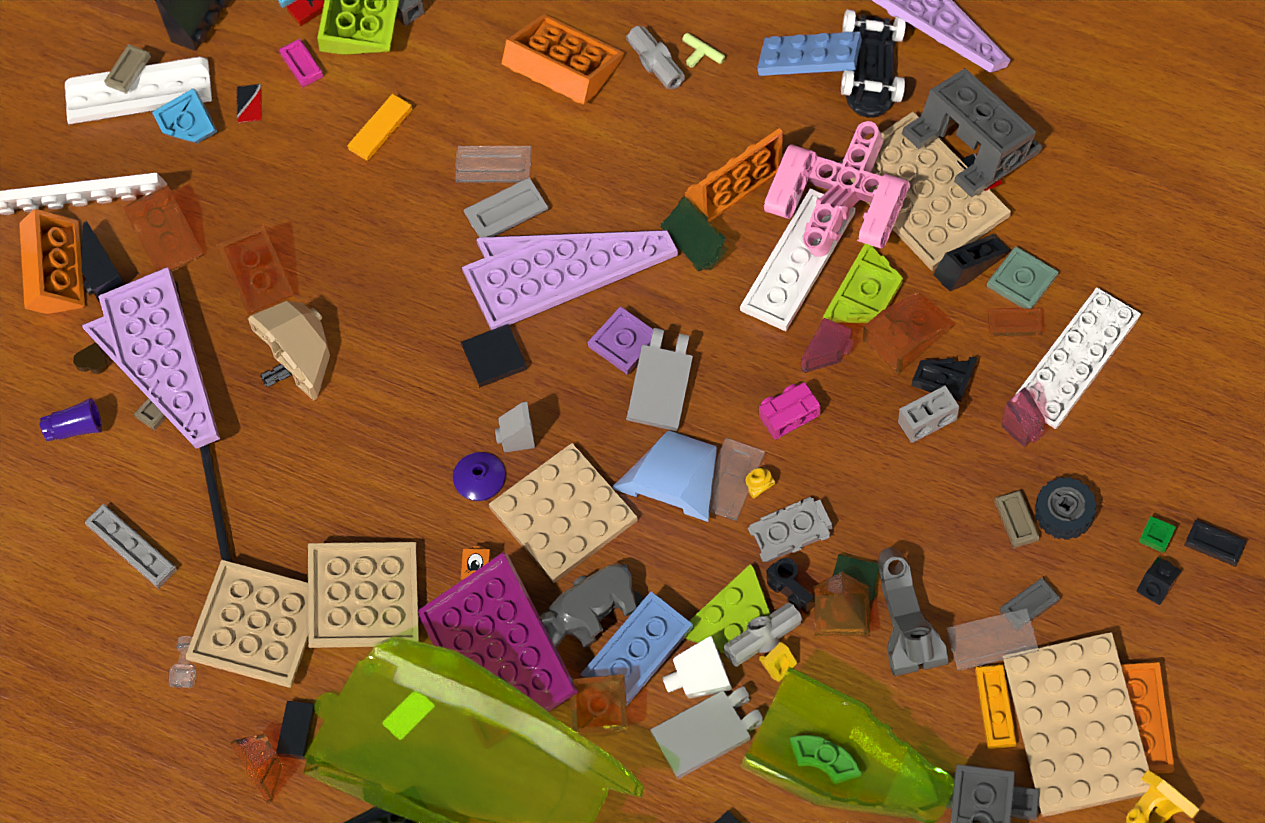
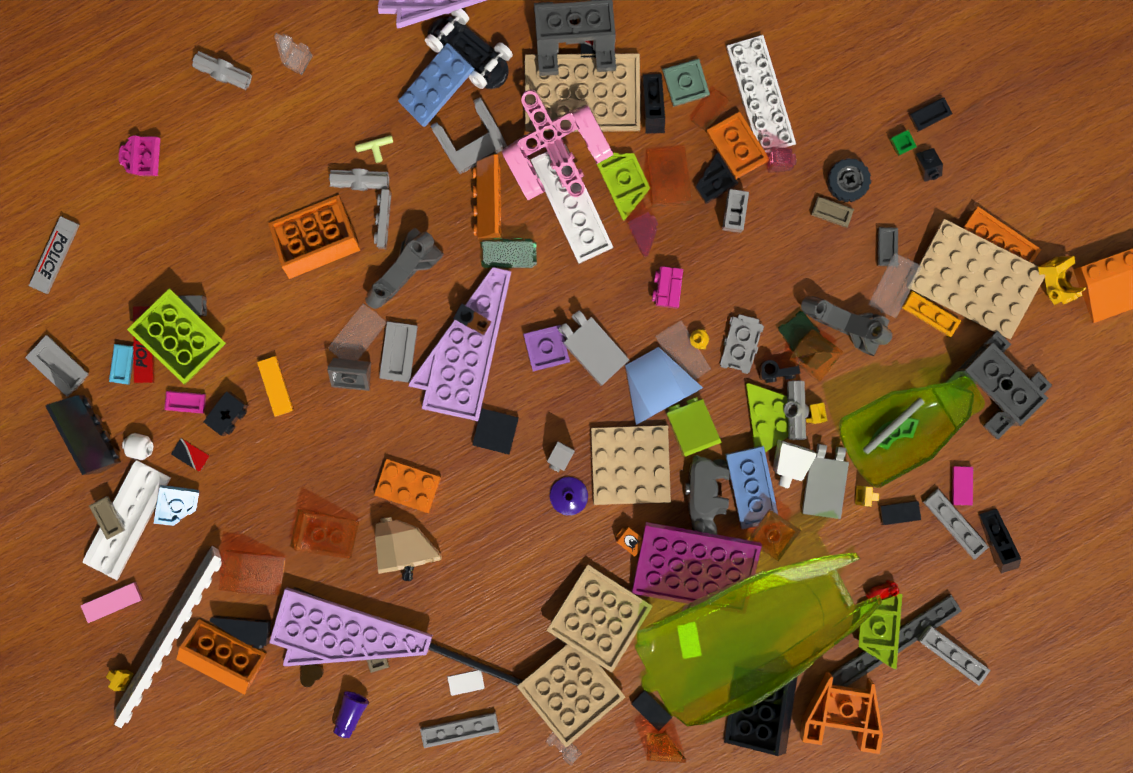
camera: 55 degrees left, 25 degrees up
(40, 134) = (111, 602): none -> bright pink tile
(189, 517) = (466, 682): none -> white sticker
(222, 49) = (137, 446): none -> white head
(316, 101) = (216, 418): none -> black brick
(368, 313) = (407, 485): none -> orange plate
(444, 179) = (349, 374): none -> dark grey slope
(594, 242) = (472, 319): none -> leg
(616, 152) = (415, 254): none -> dark grey connector
(633, 103) = (382, 219): none -> light grey plate
(653, 540) = (692, 427): none -> lime slope
(726, 784) = (865, 496): none -> yellow tile
(757, 127) = (479, 149): none -> light grey connector
(830, 746) = (893, 426): none -> light grey piece
(1000, 368) = (737, 145): none -> orange plate

